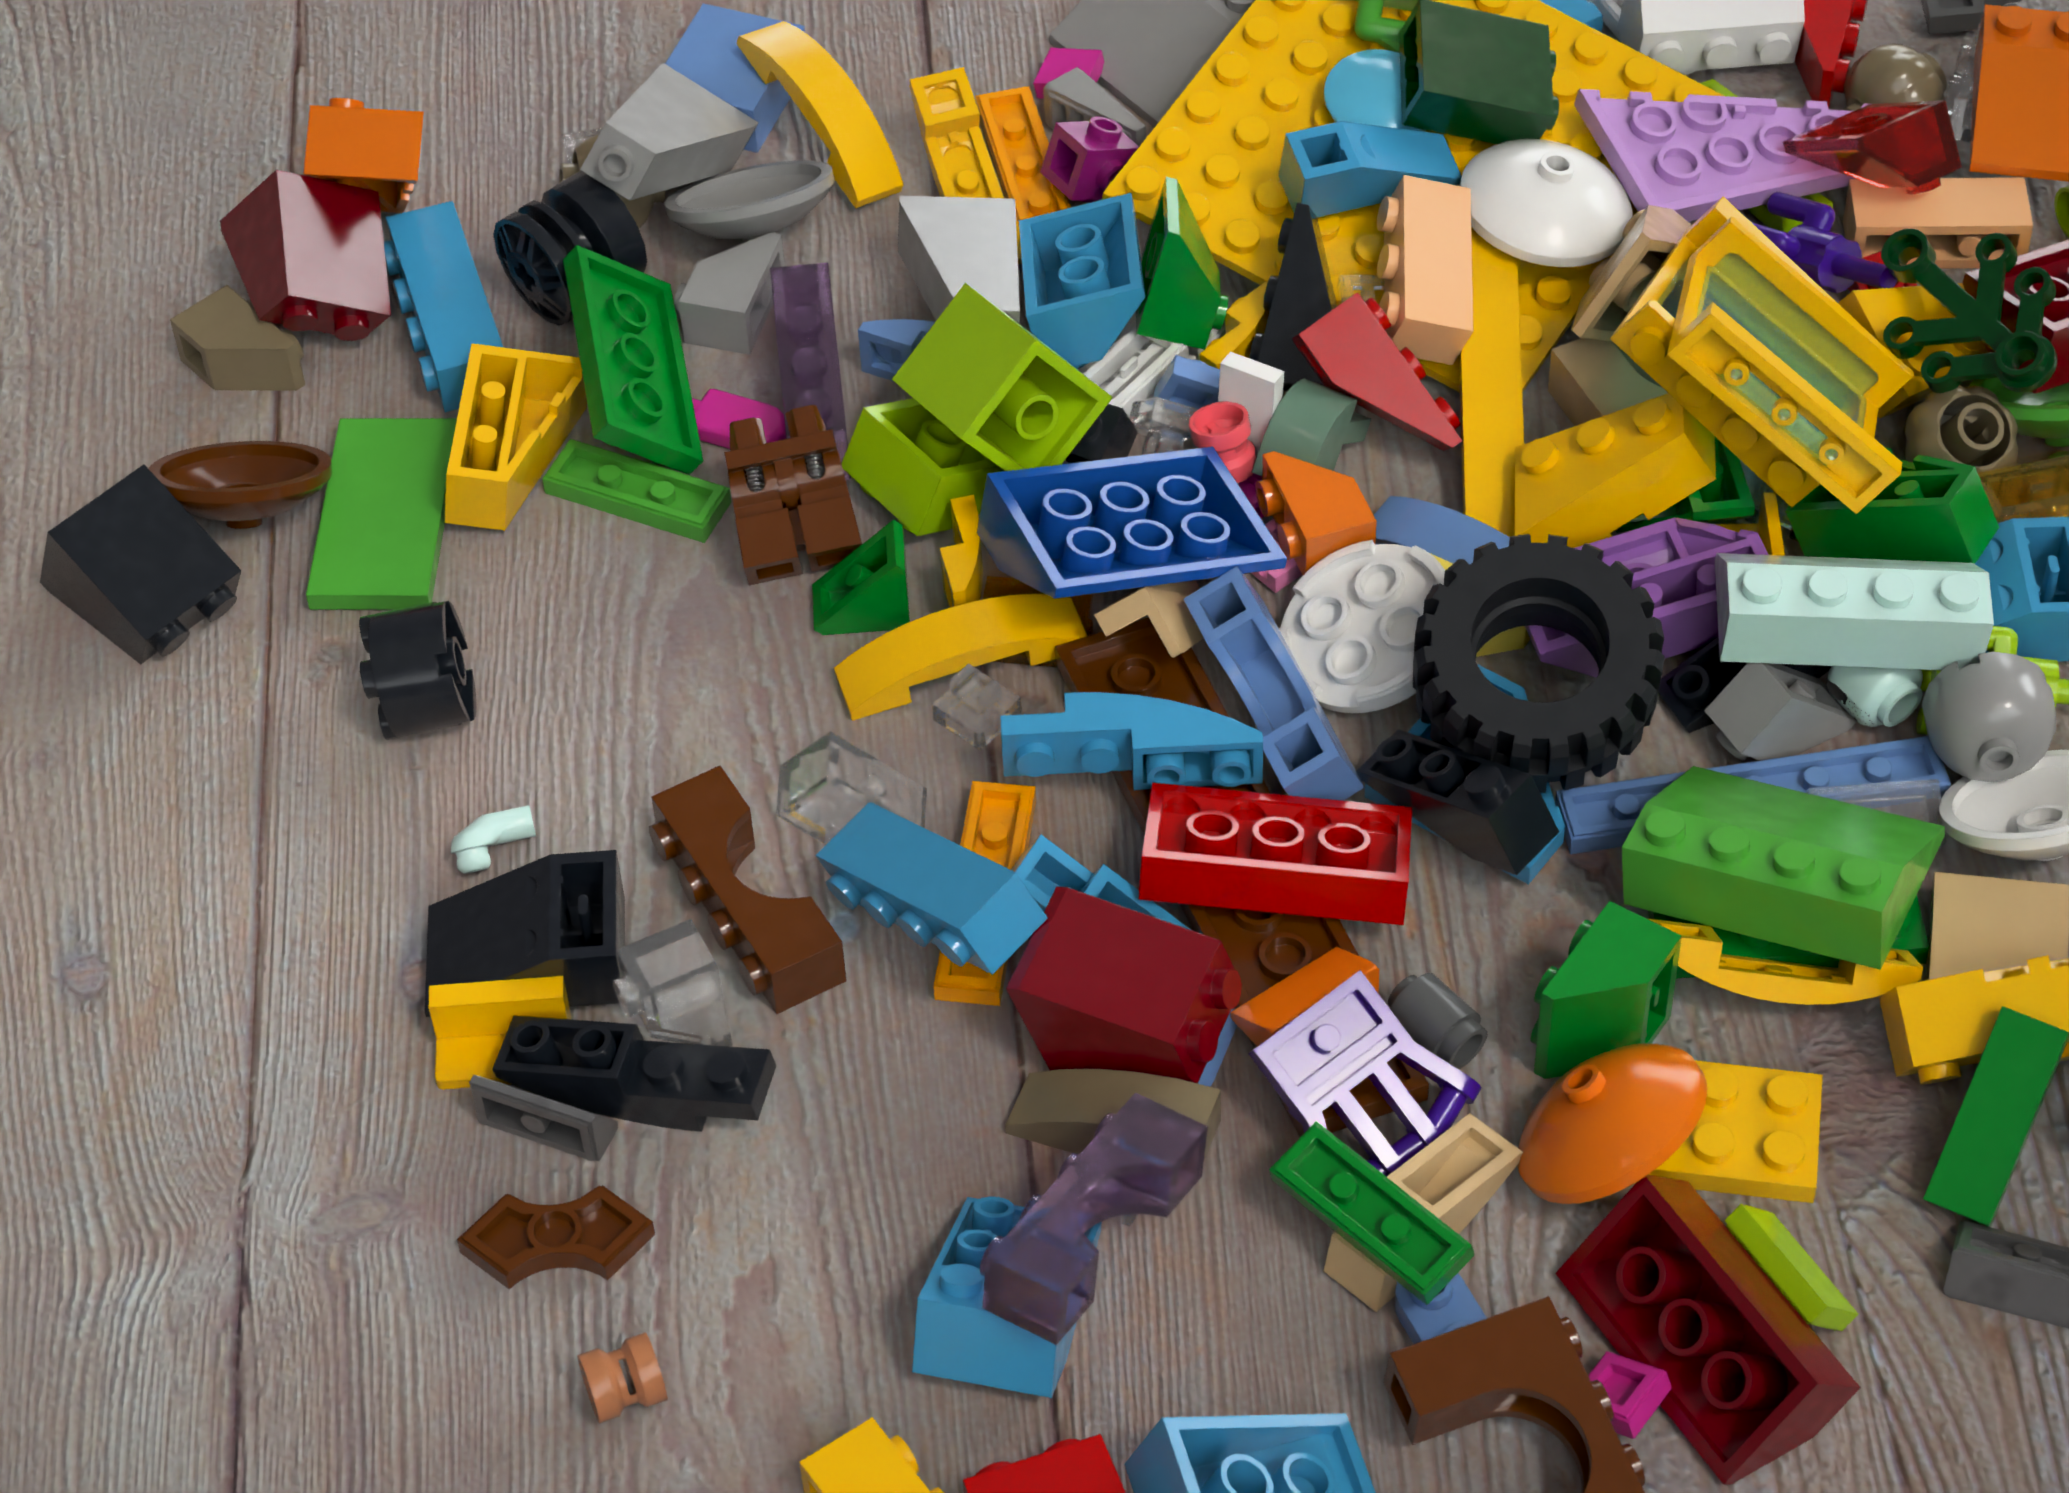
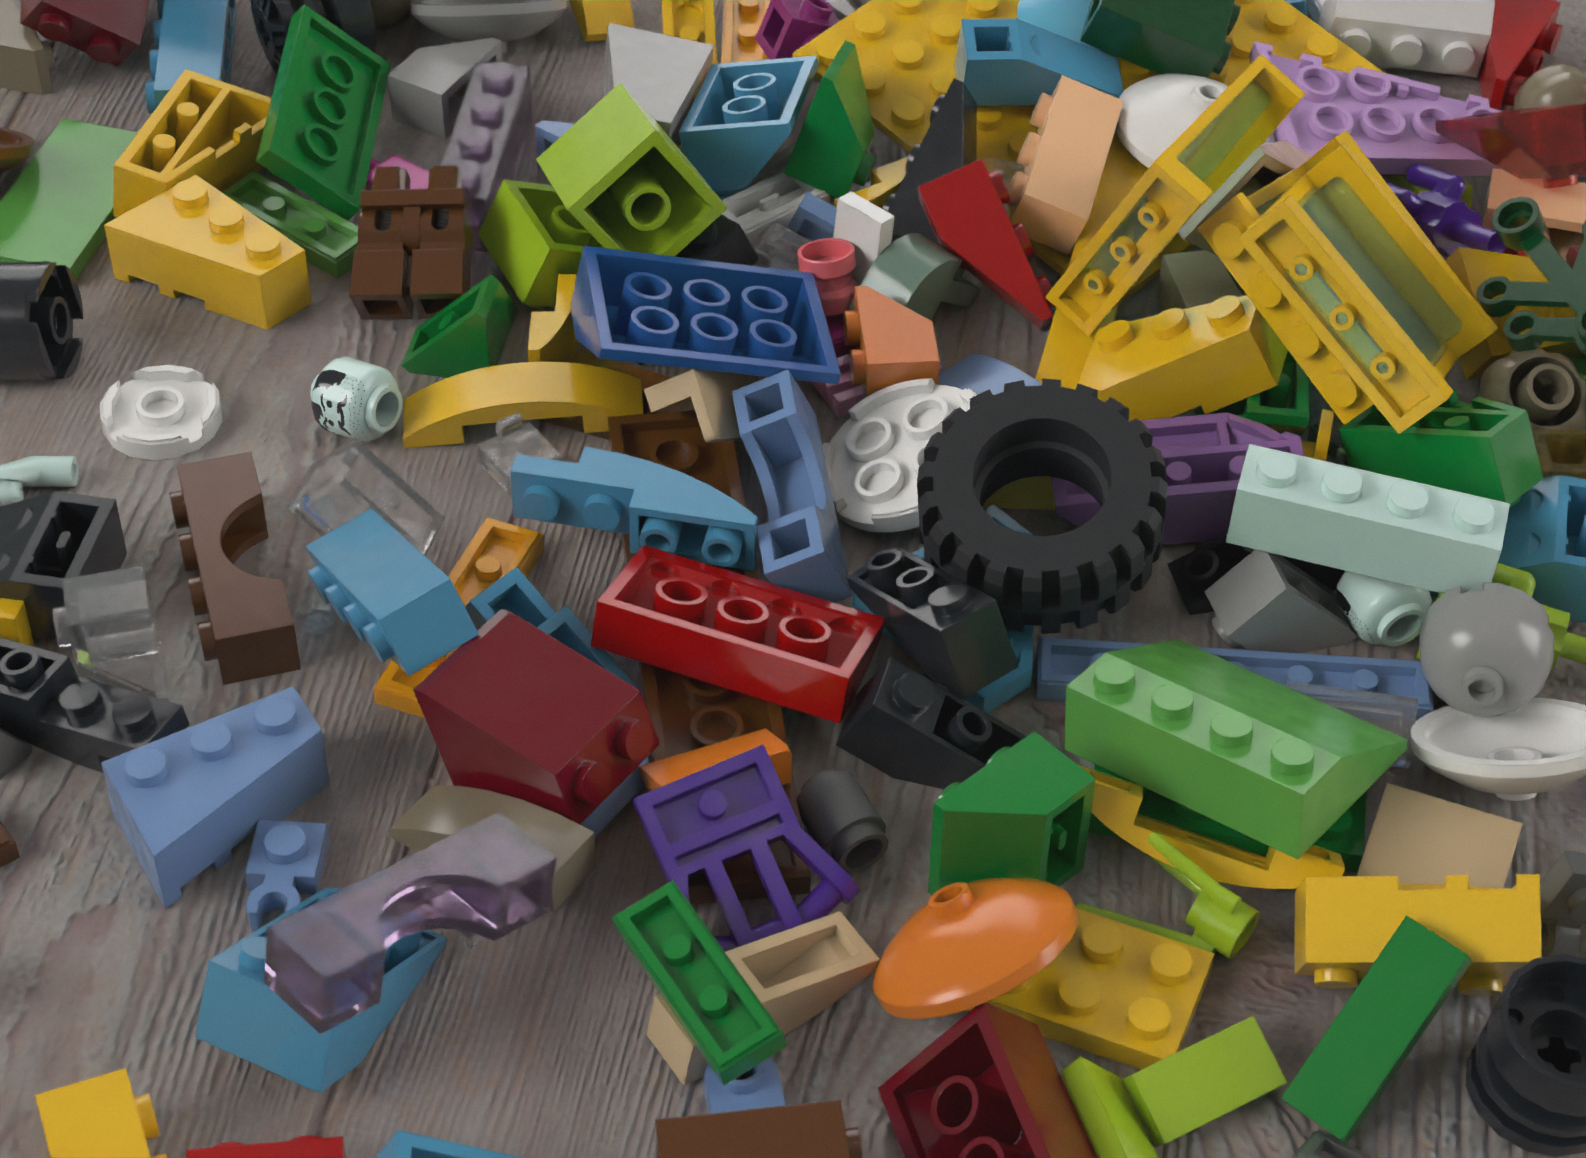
camera: 10 degrees right, 5 degrees down
(576, 545) = (212, 250): none -> yellow wedge
(590, 736) = (161, 413): none -> white tile
(792, 681) = (356, 399): none -> light aqua head
(825, 1124) = (209, 784): none -> medium blue wedge
(920, 1186) = (282, 864): none -> medium blue plate
(1490, 916) = (920, 729): none -> black slope
(1555, 310) = (1173, 192): none -> yellow panel
(1816, 1036) = (1217, 915): none -> lime plant
(1851, 1199) = (1204, 1081): none -> lime tile

